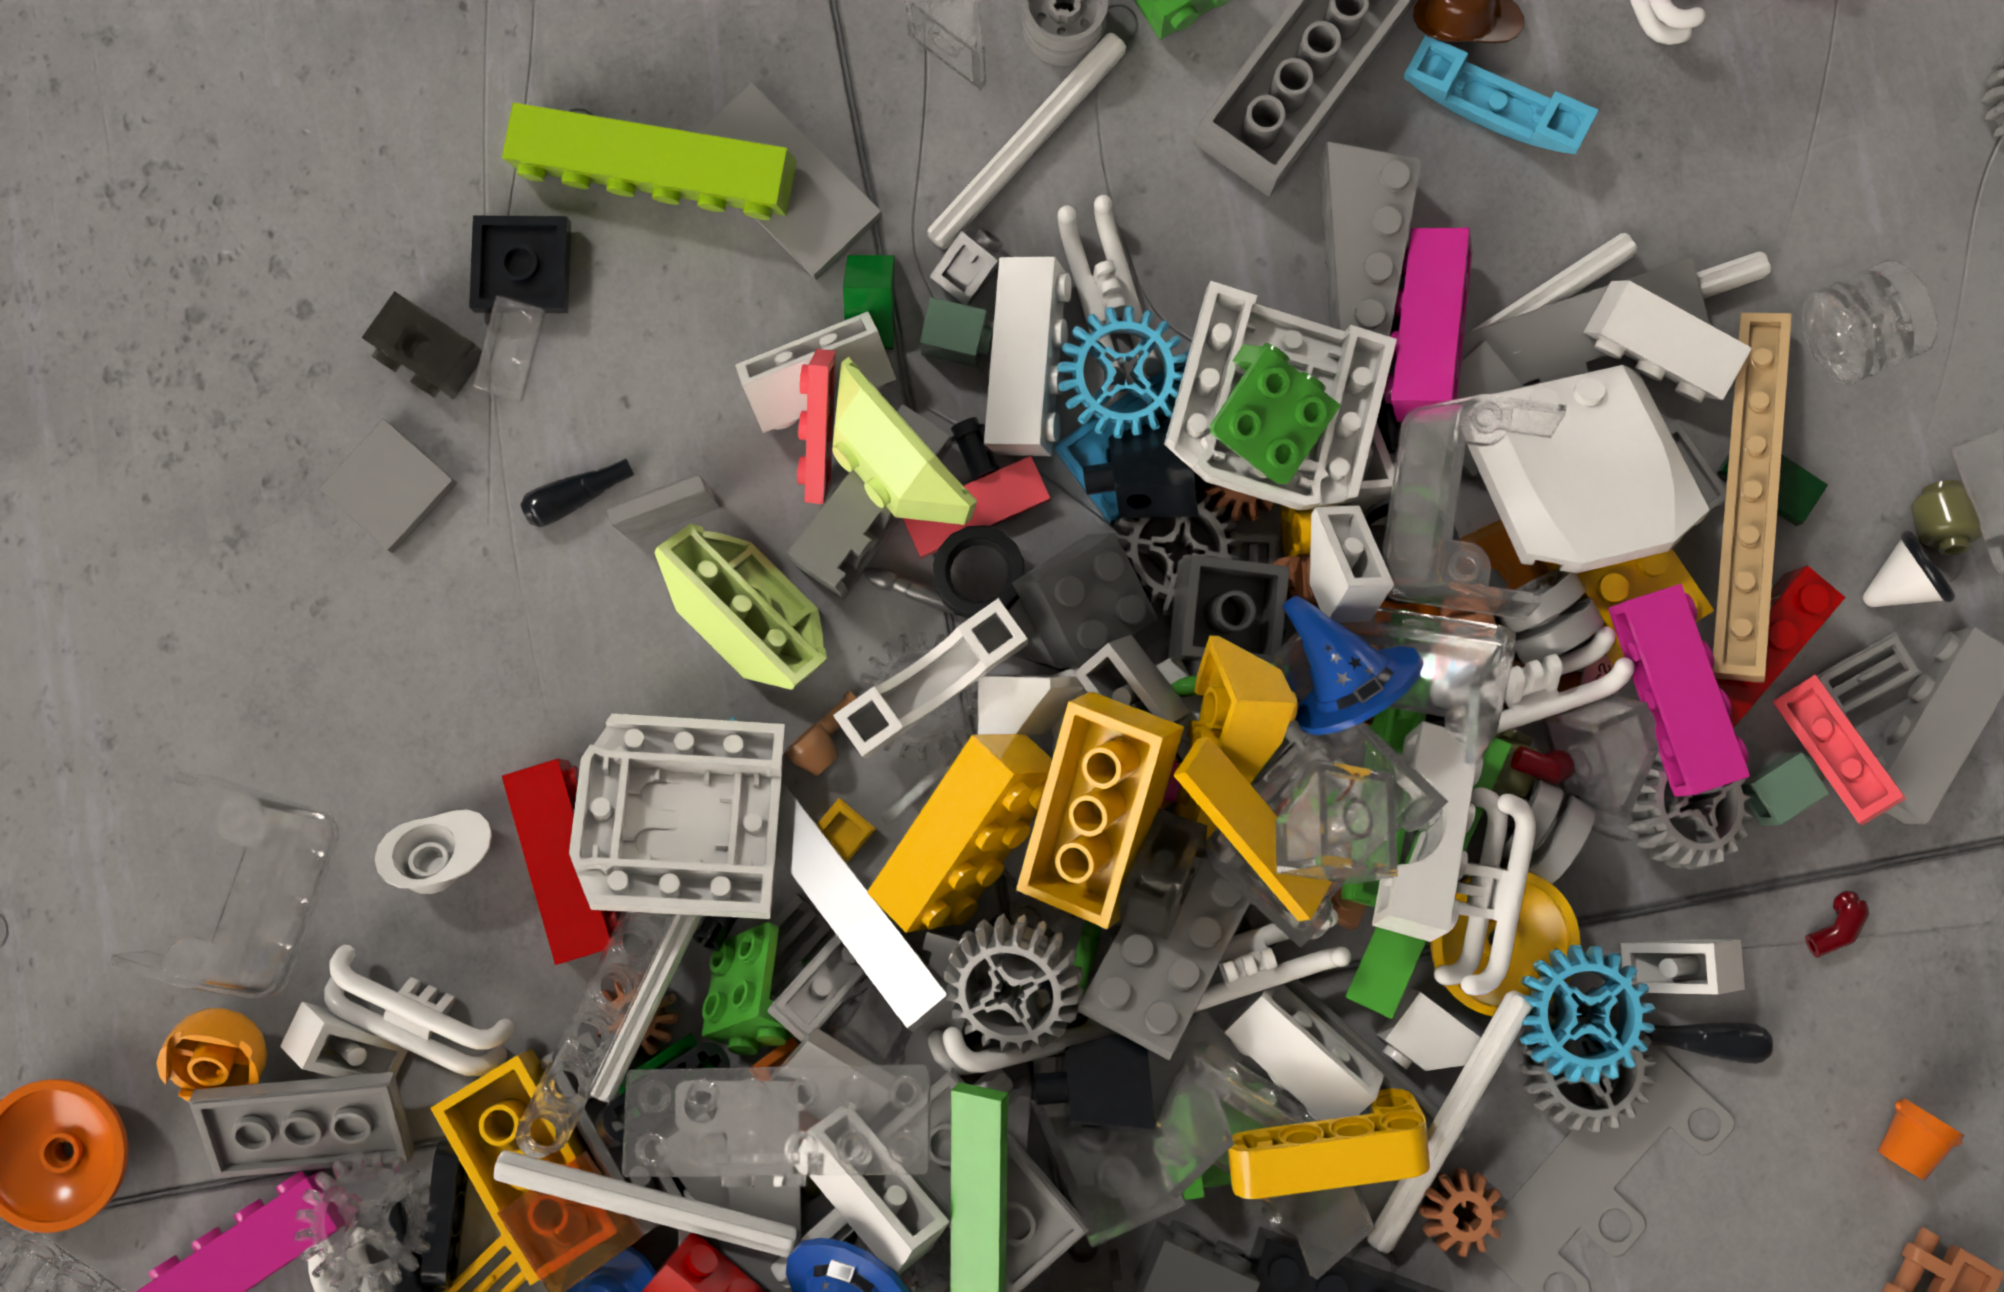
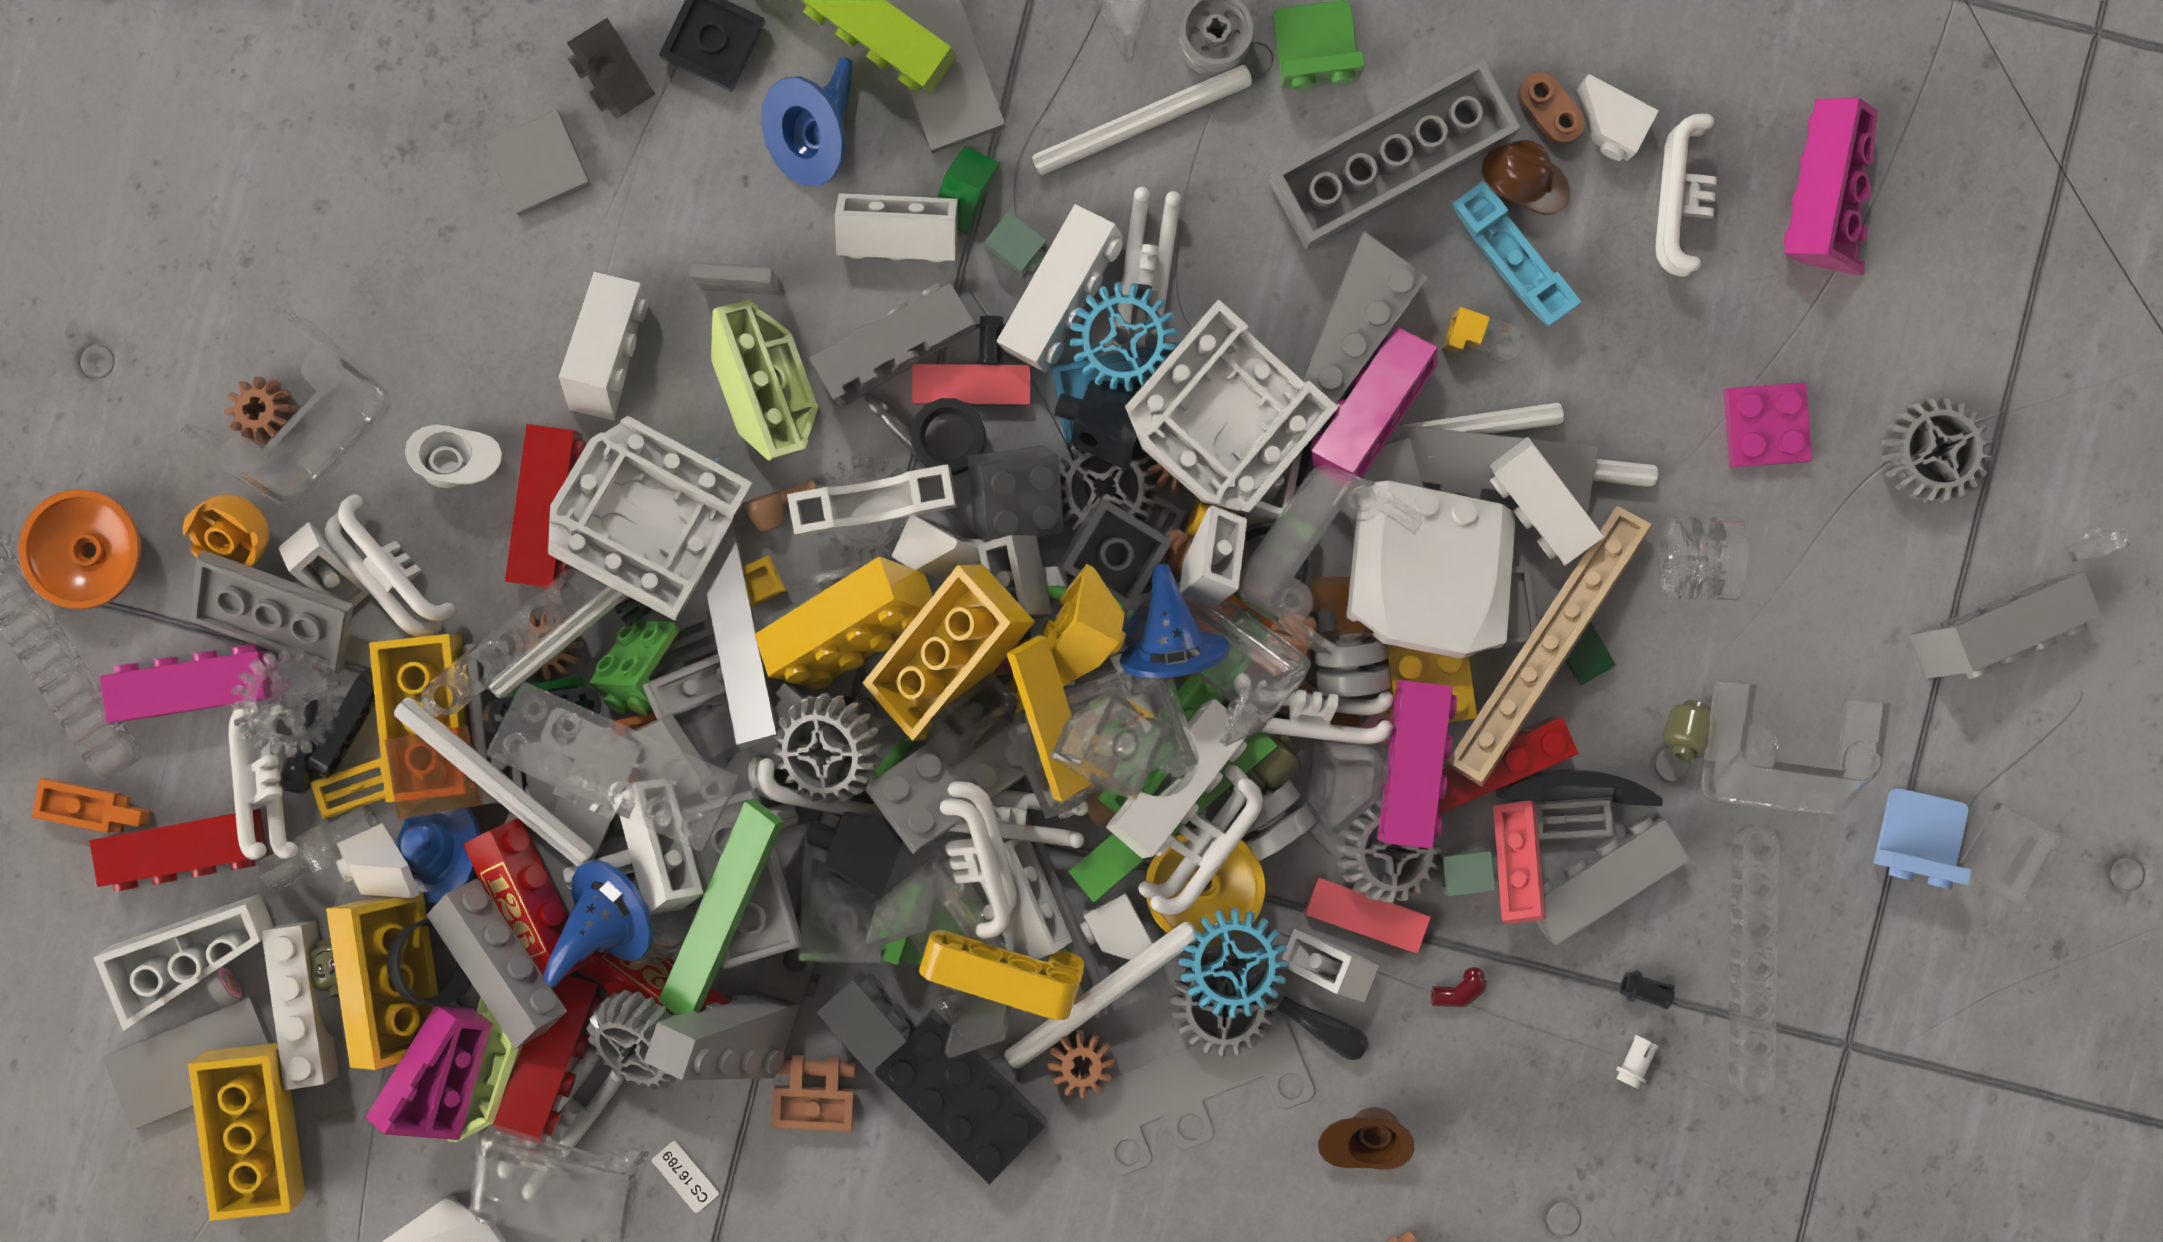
camera: 15 degrees right, 5 degrees up
(182, 889) = (253, 398): none -> nougat gear
(509, 348) = (675, 100): clear plate -> none
(548, 651) = (602, 346): none -> white wedge
(564, 496) = (668, 233): black piece -> none
(667, 308) = (806, 125): none -> blue piece
(816, 425) = (877, 270): coral plate -> none
(892, 457) = (919, 320): yellowish green wedge -> none
(969, 264) = (1052, 196): flat silver bracket -> none
(1245, 1027) = (982, 856): none -> white piece
(1273, 413) = (1213, 422): bright green bracket -> none
(1506, 196) = (1494, 337): none -> leg
(1550, 767) = (1298, 776): dark red arm -> none
(1692, 892) = (1371, 918): none -> coral tile
(1829, 1145) = (1367, 1141): none -> reddish brown piece
(1855, 154) = (1767, 425): none -> dark pink plate
(1905, 618) = (1625, 790): none -> black slope
(1908, 577) = (1641, 761): white hat -> none
(1917, 1139) = (1436, 1166): orange piece -> none

